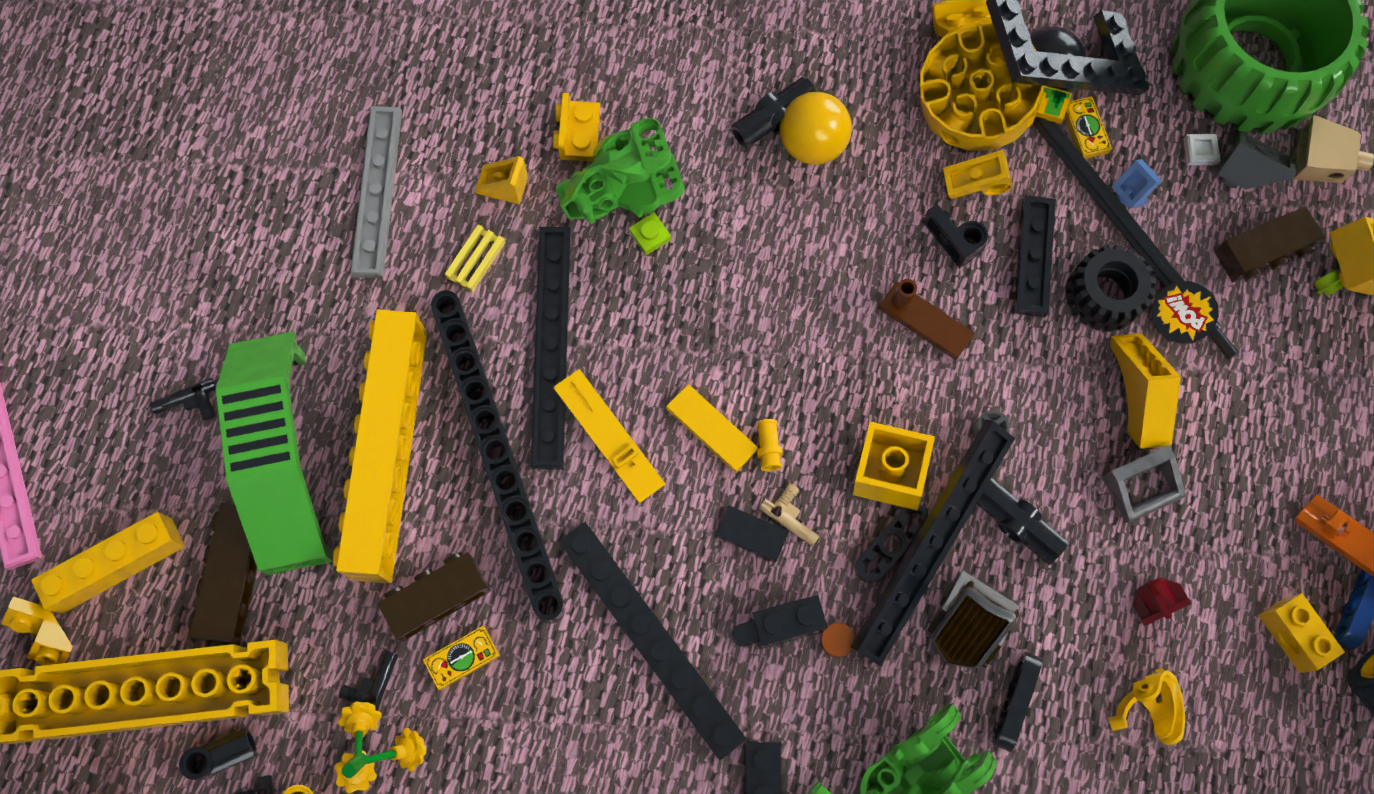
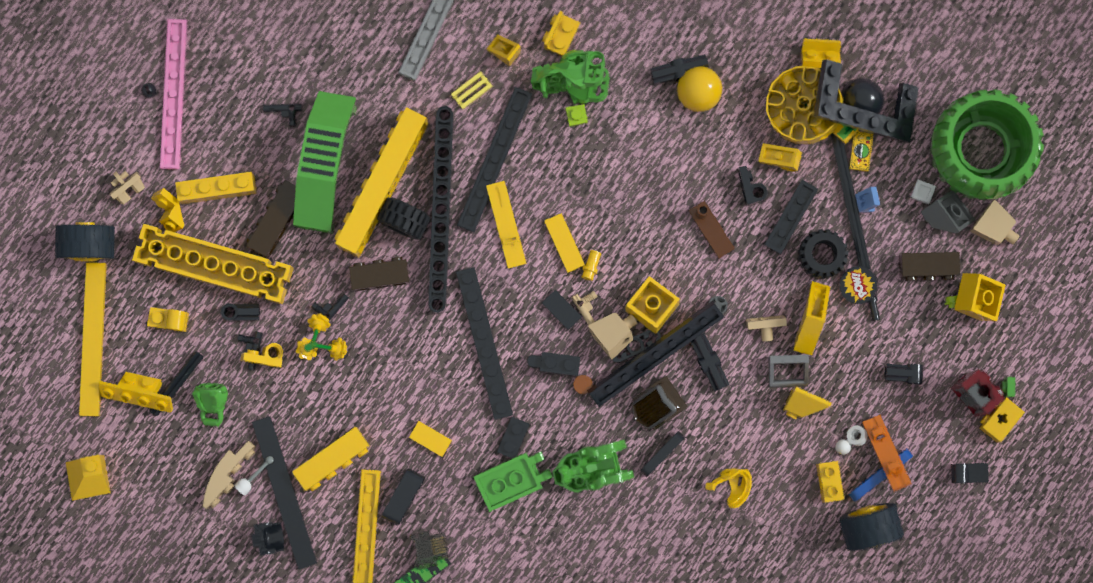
camera: 25 degrees right, 10 degrees up
(439, 487) = (403, 218): none -> black tyre
(461, 657) = (381, 312): tile -> none
(851, 536) = (613, 333): none -> tan torso
(1078, 428) = (766, 325): none -> tan tile
(1159, 600) = (764, 433): dark red piece -> none
(1200, 523) = (802, 403): none -> yellow slope
(1287, 567) = (844, 446): none -> white plate
(1323, 414) = (905, 373): none -> black piece

